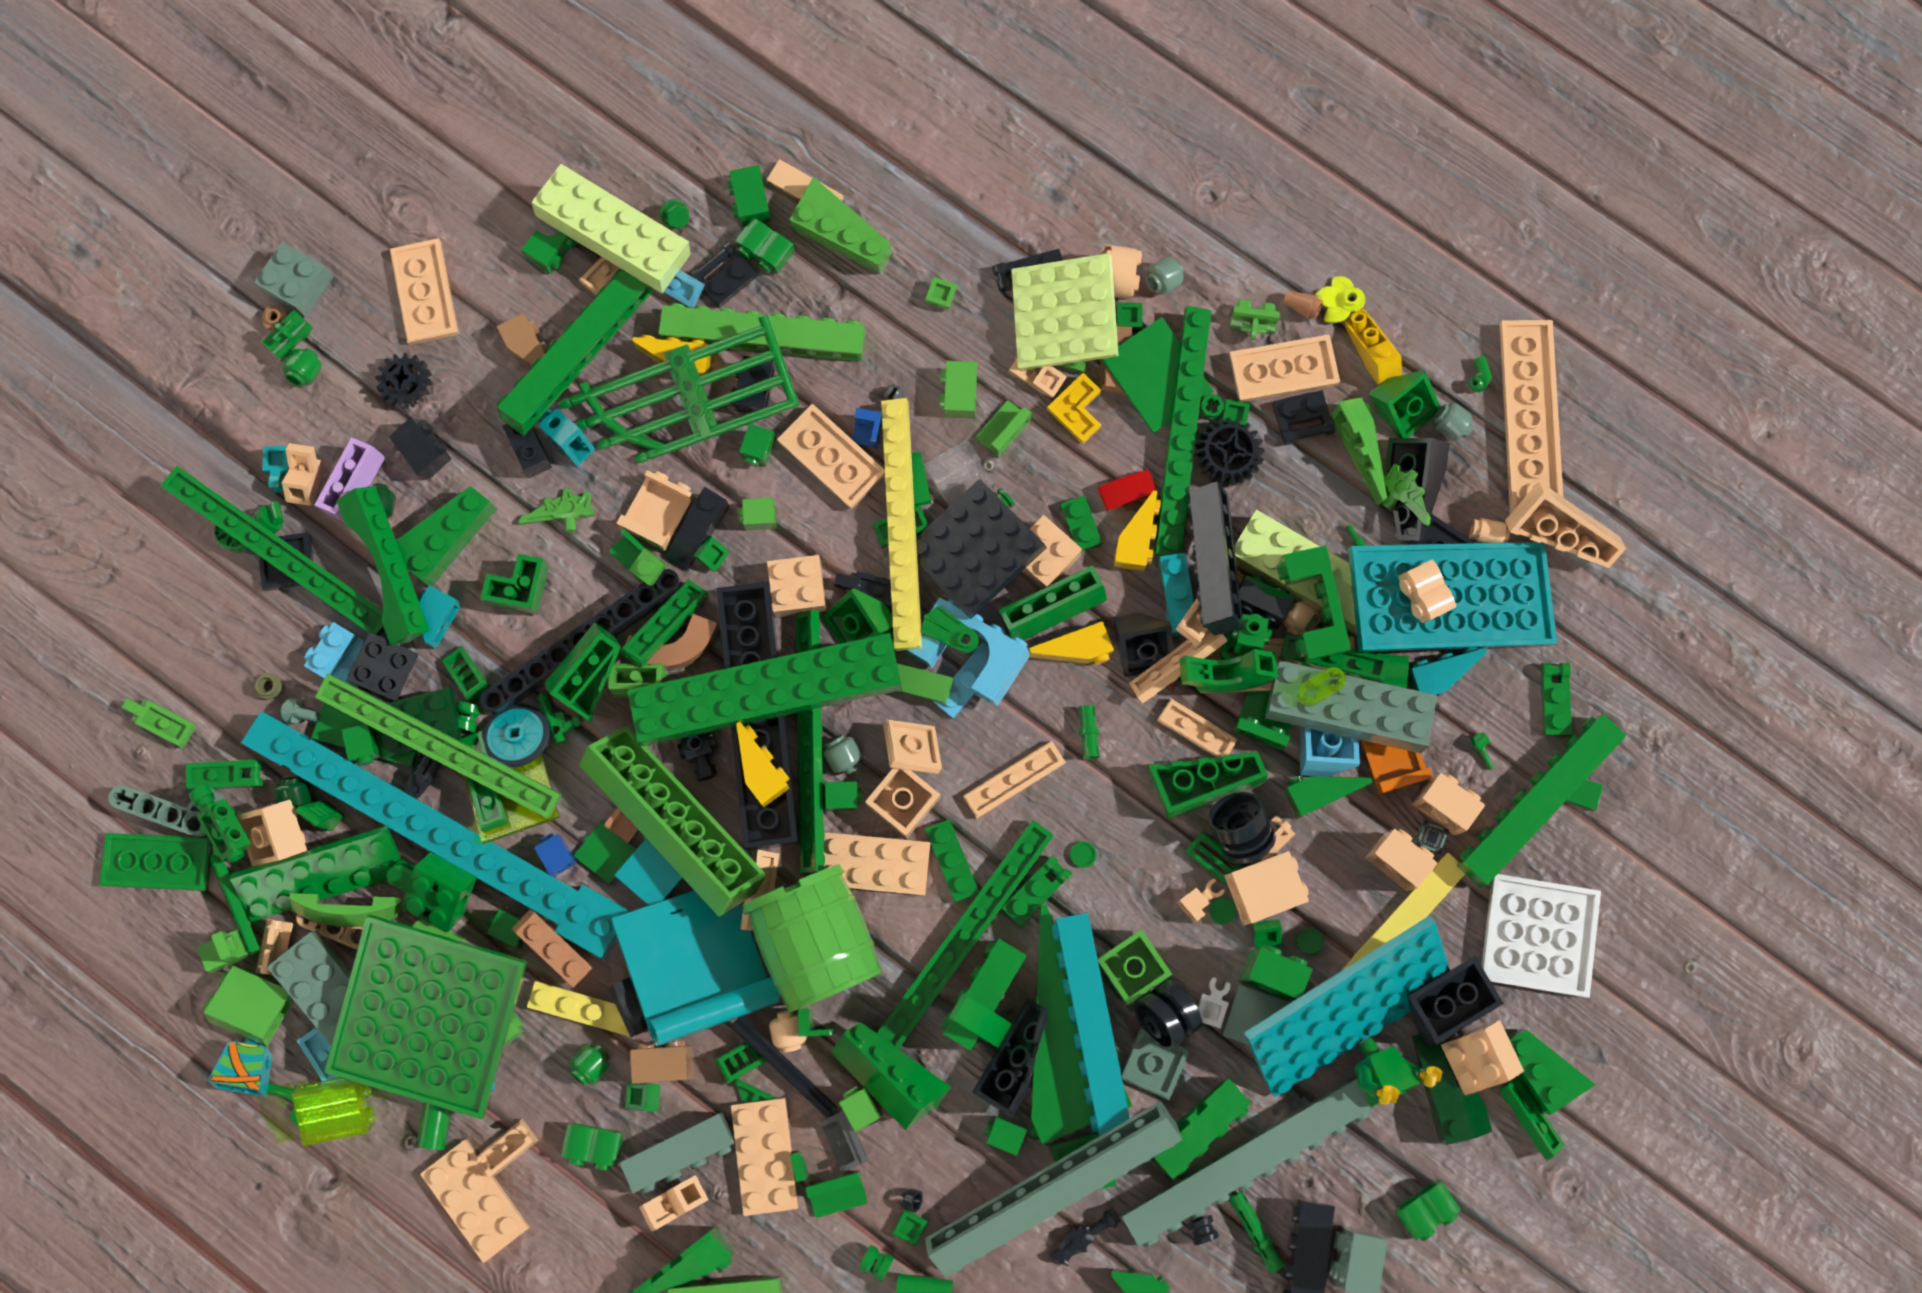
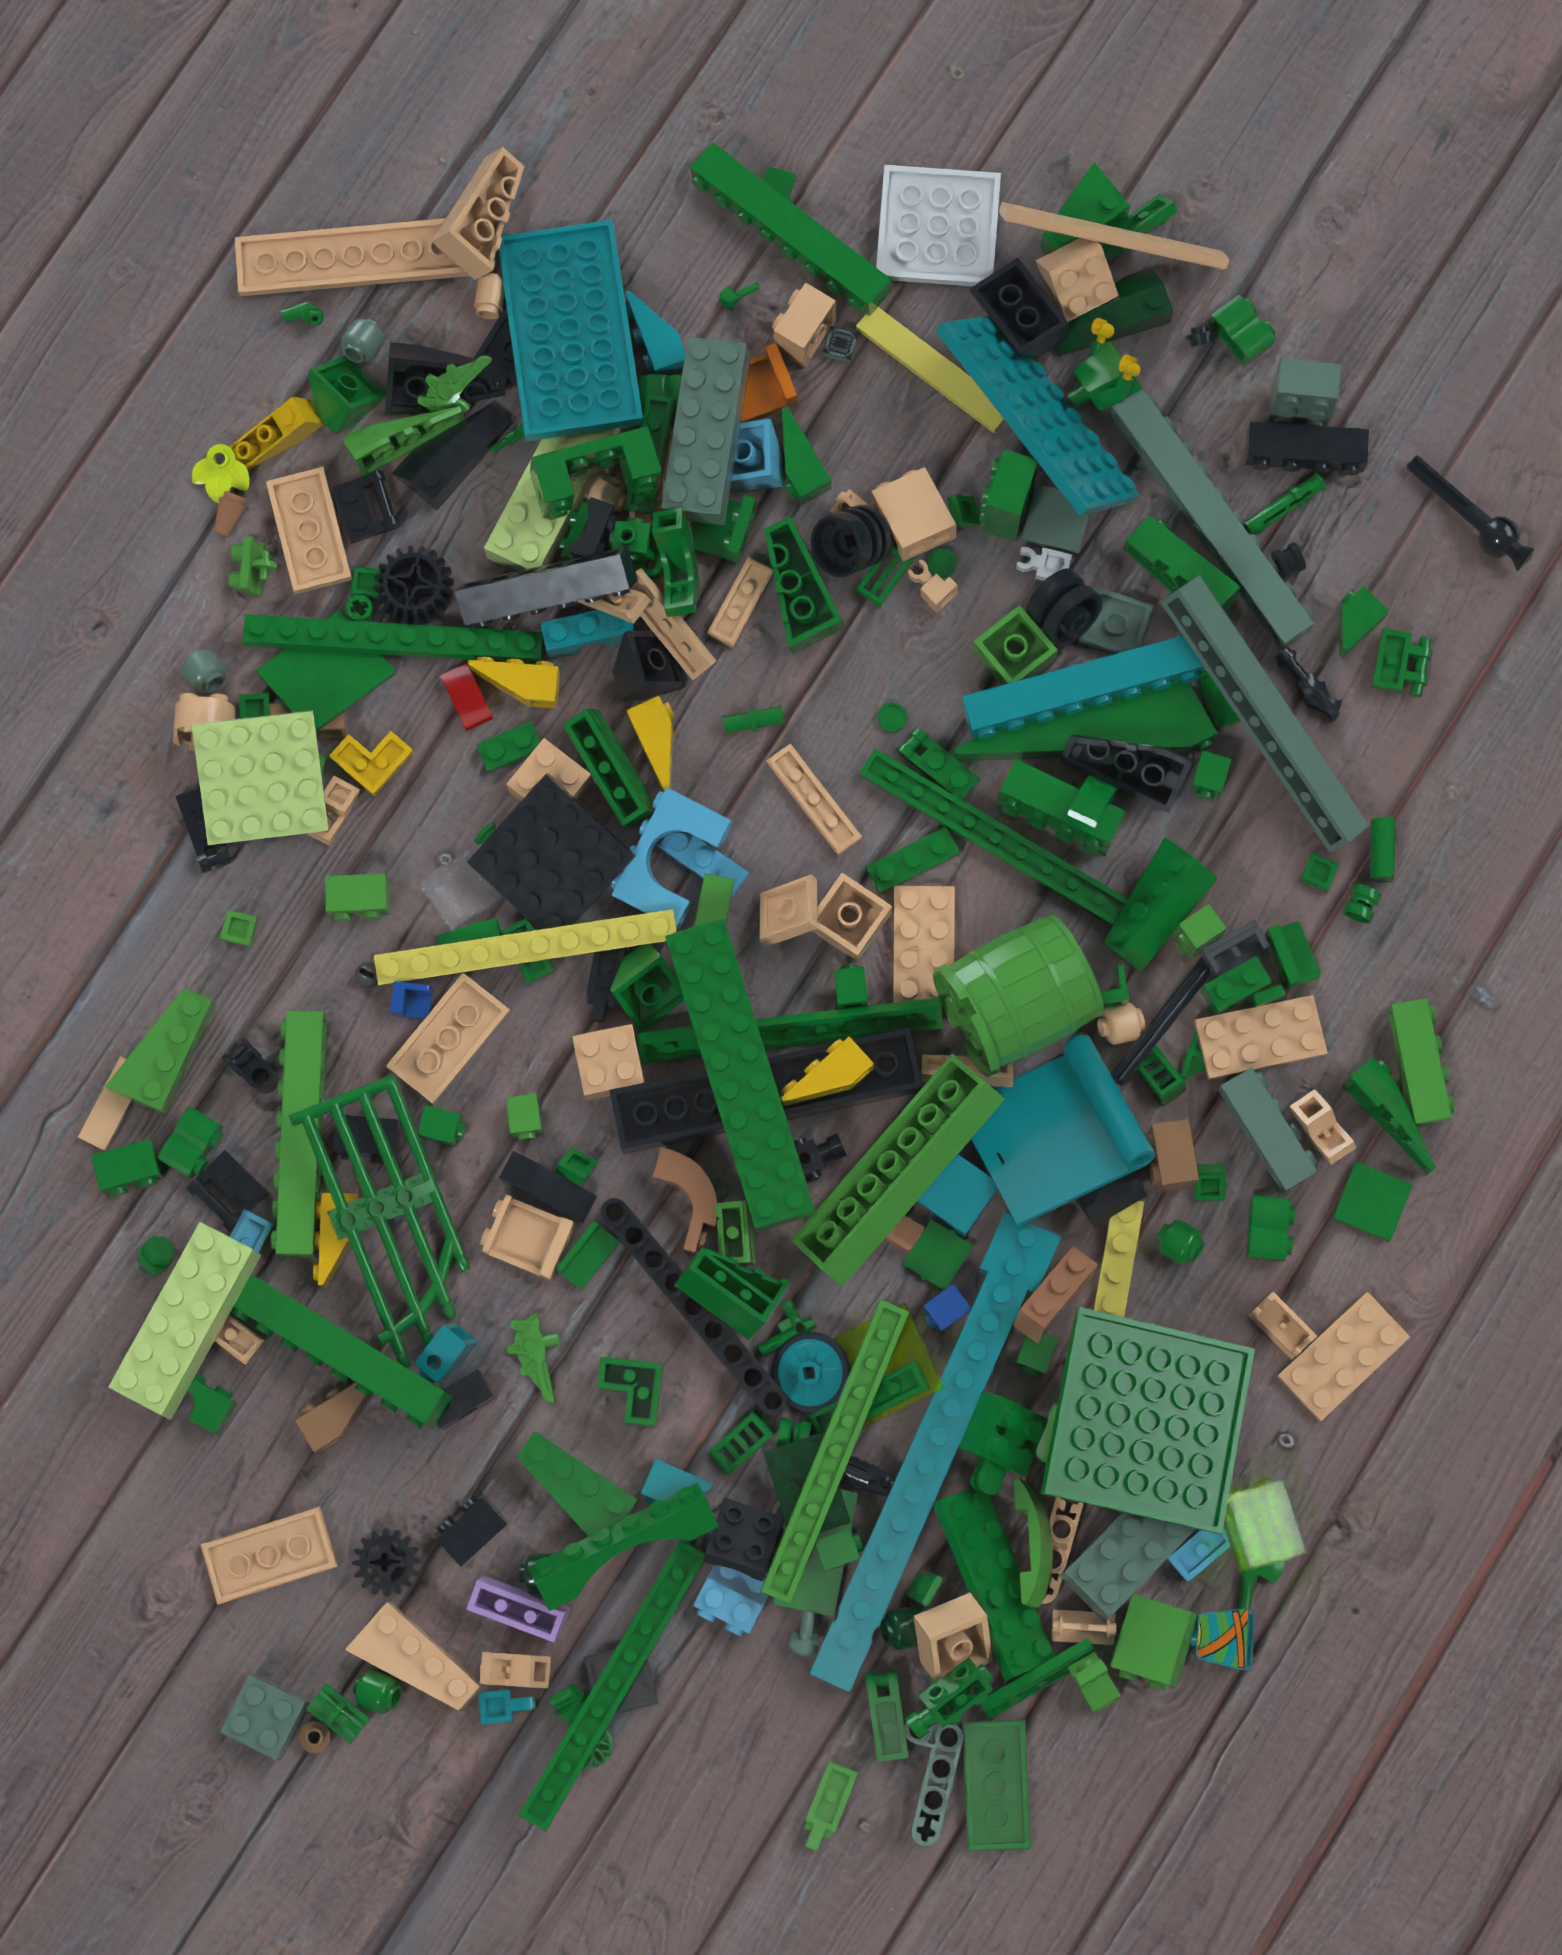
camera: 90 degrees left, 0 degrees up
(261, 683) = (765, 1676): olive plate -> none
(323, 397) = (412, 1656): none -> light nougat wedge
(433, 1127) = (1268, 1414): green brick -> none
(607, 1242) = (1372, 1201): none -> green tile
(648, 567) = (602, 1232): bright green plate -> none
(664, 623) = (665, 1209): green tile -> none
(810, 1138) = (1235, 986): none -> green brick
(826, 293) = (249, 1063): none -> black piece
(842, 754) = (802, 992): sand green head -> none
(911, 1200) = (1290, 871): black hinge -> none
(949, 630) = (650, 879): green piece -> none
(1004, 428) = (400, 843): bright green panel -> none
(1309, 941) = (966, 468): green piece -> none
(1324, 692) = (696, 454): clear neon green beam -> none
(1341, 486) = (447, 459): none -> black wedge
(1401, 859) = (870, 371): light nougat brick -> none
(1423, 1170) = (1200, 335): none -> black plate
(1426, 591) = (570, 353): light nougat brick -> none
(1520, 1095) = (1113, 236): none -> light nougat tile
(1556, 700) = (675, 219): green plate -> none

